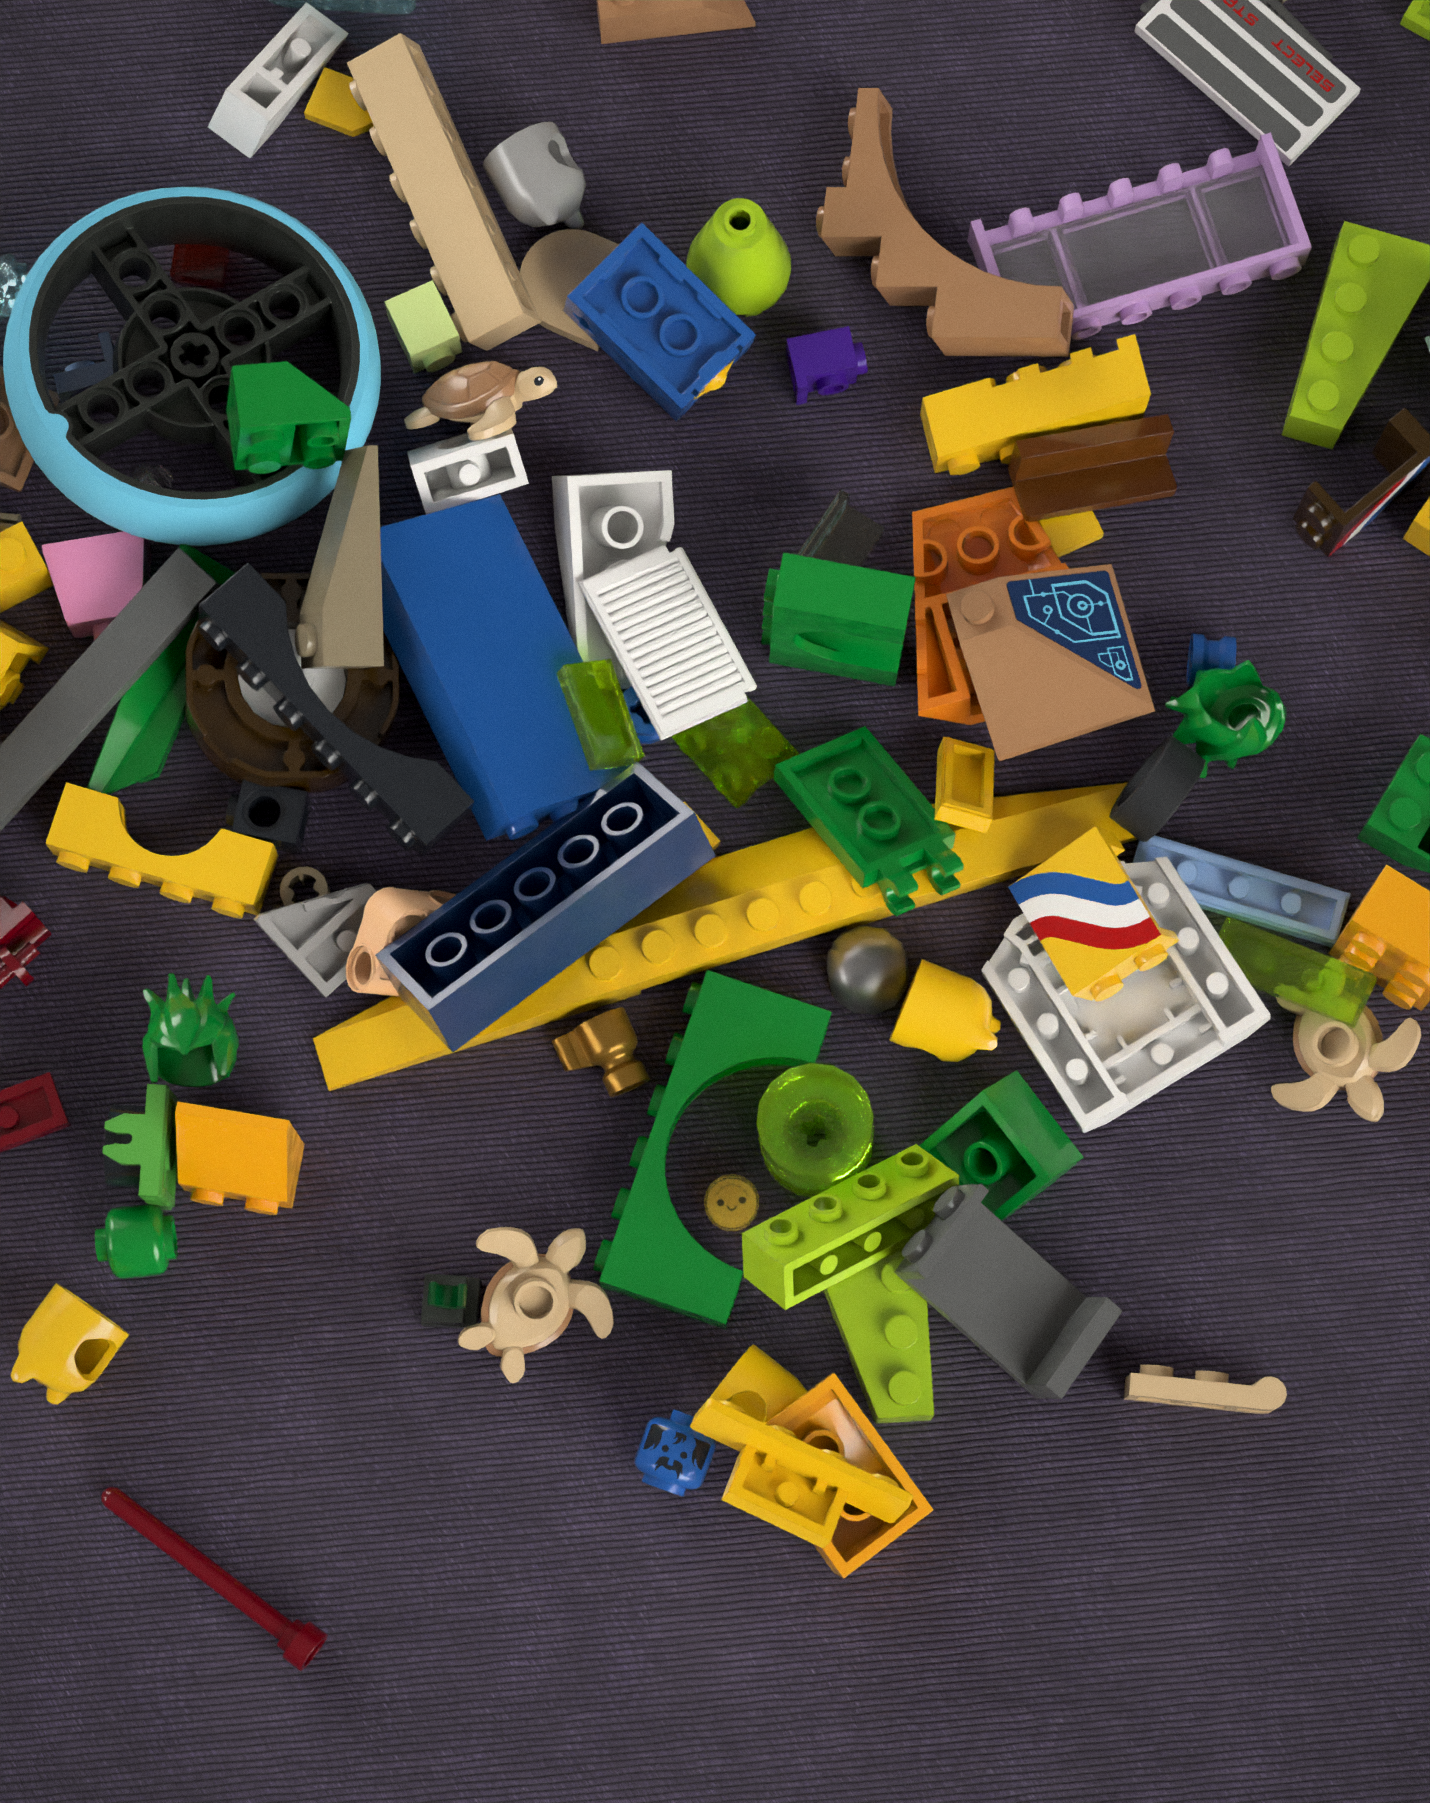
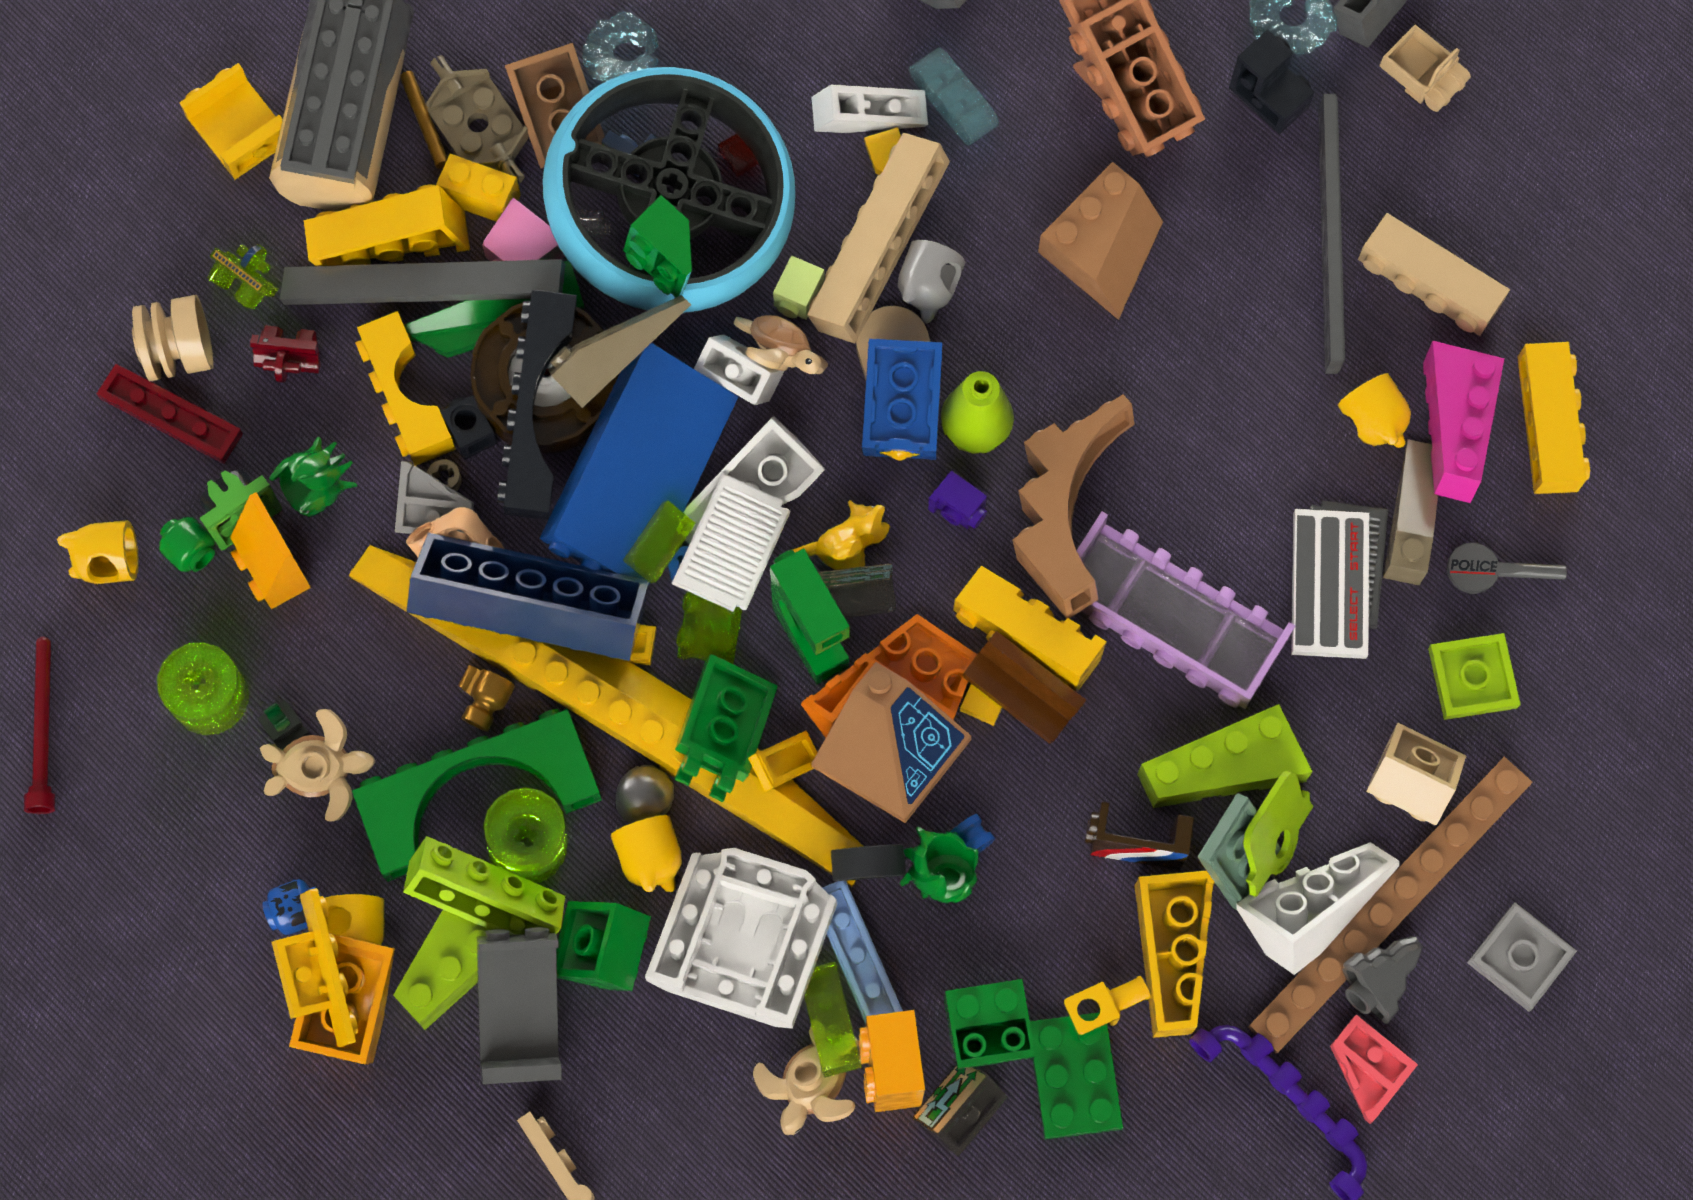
camera: 50 degrees right, 5 degrees down
(329, 1386) = (215, 704): none -> clear neon green wheel
(731, 1202) = (457, 828): clear yellow tile -> none
(767, 518) = (845, 543): none -> yellow animal
(1091, 916) = (765, 884): panel -> none

